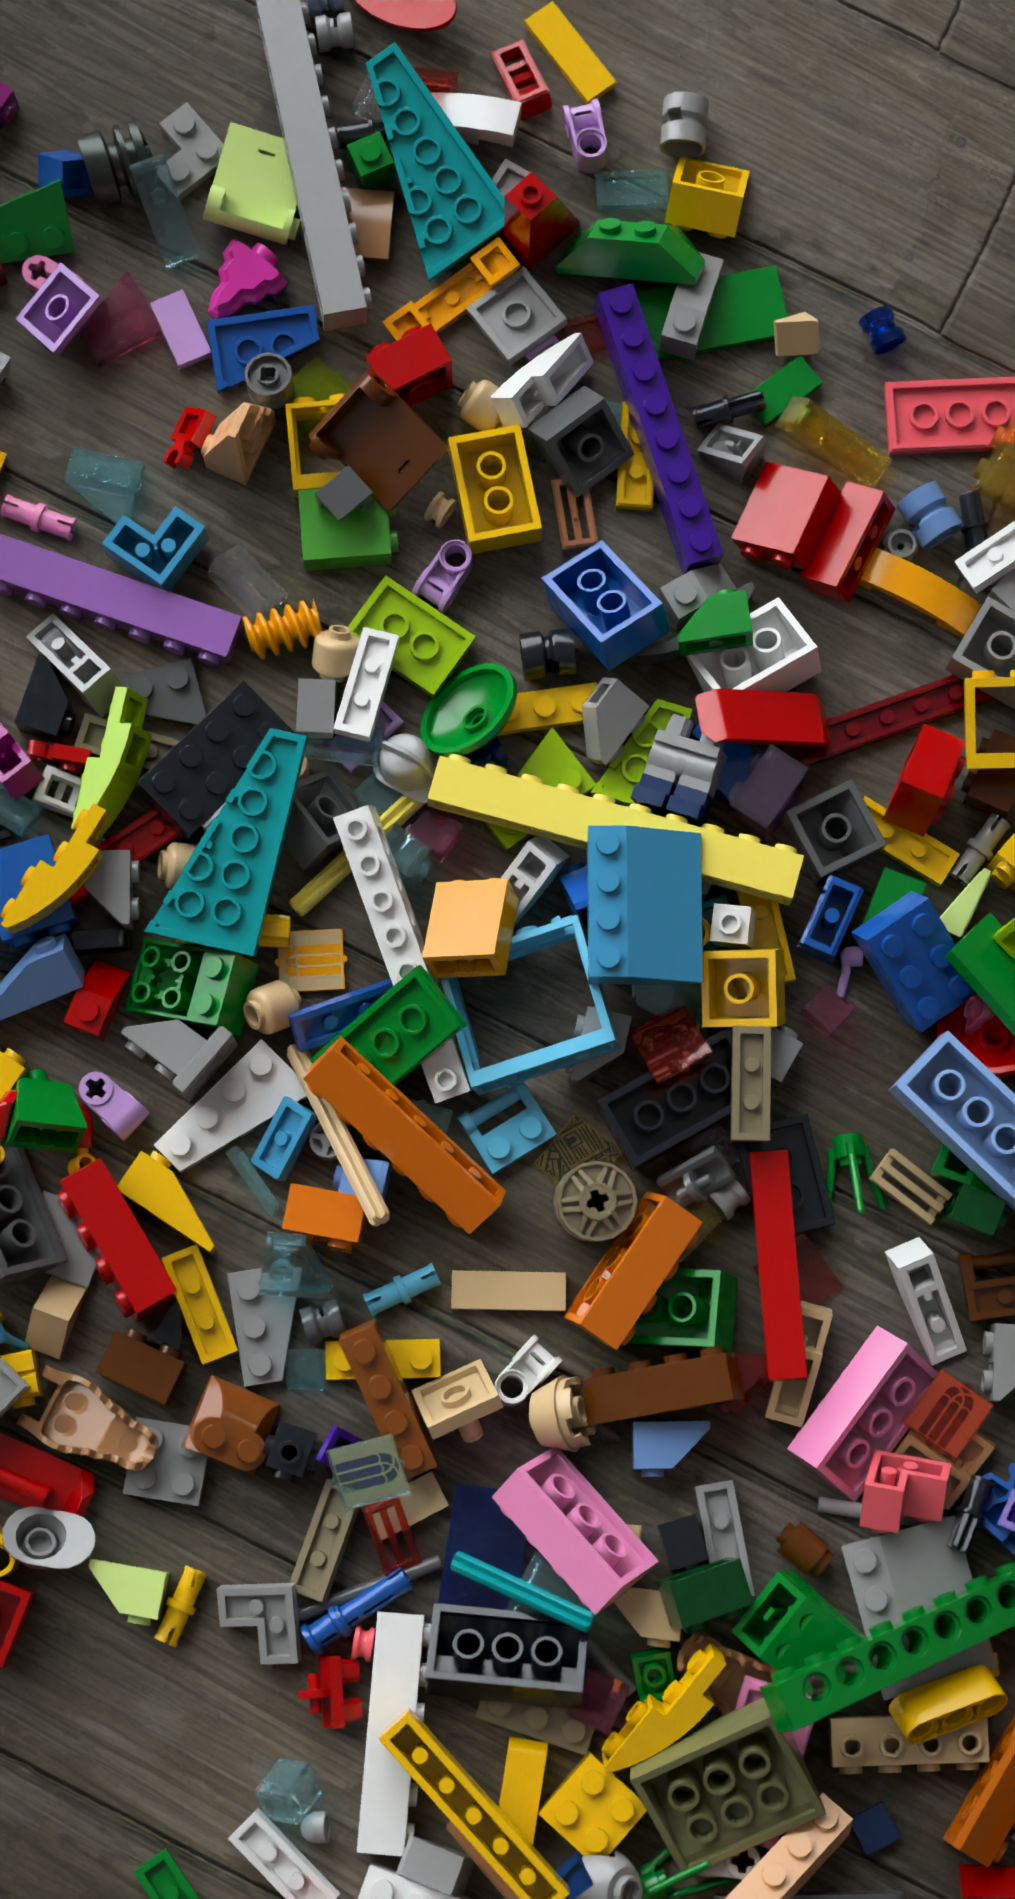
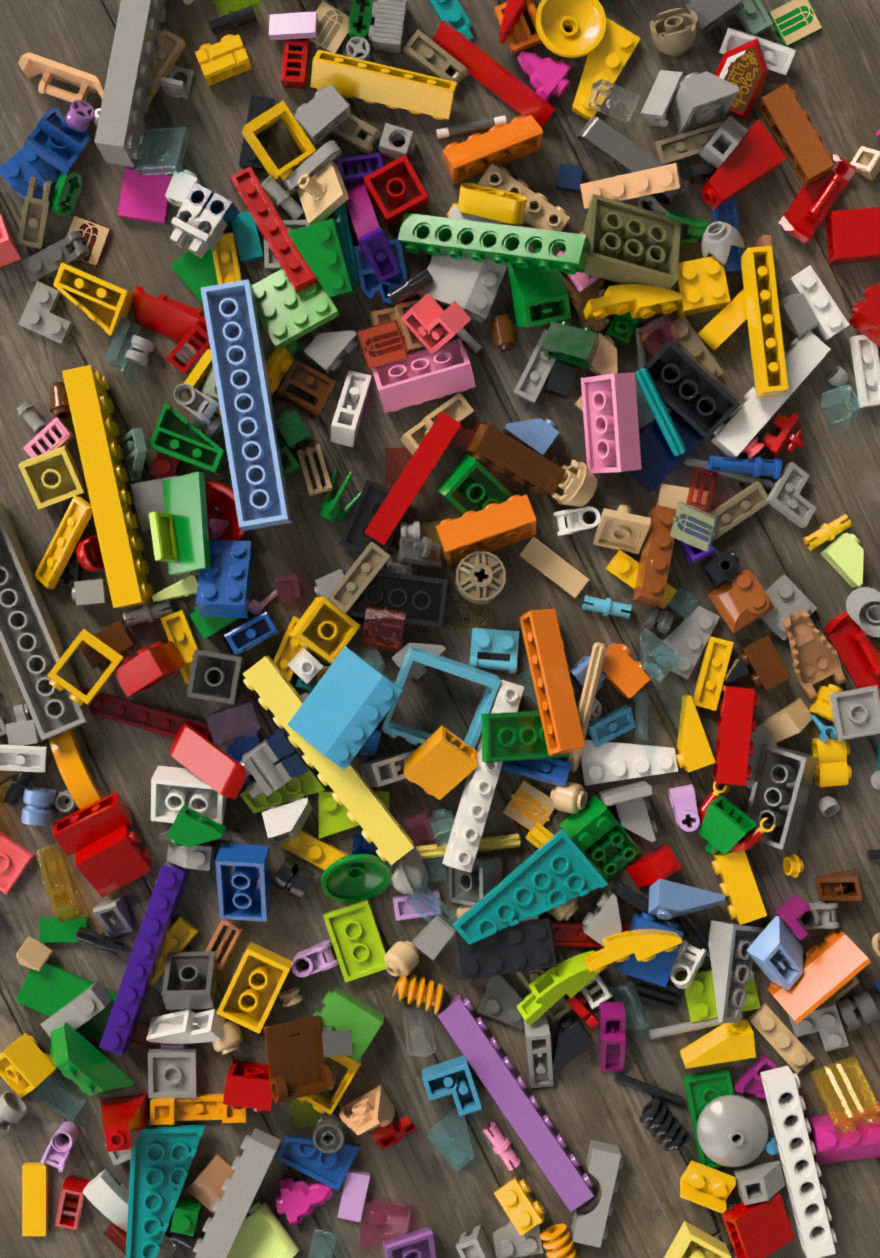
camera: 145 degrees left, 10 degrees up
(366, 684) = (398, 931): white plate -> none

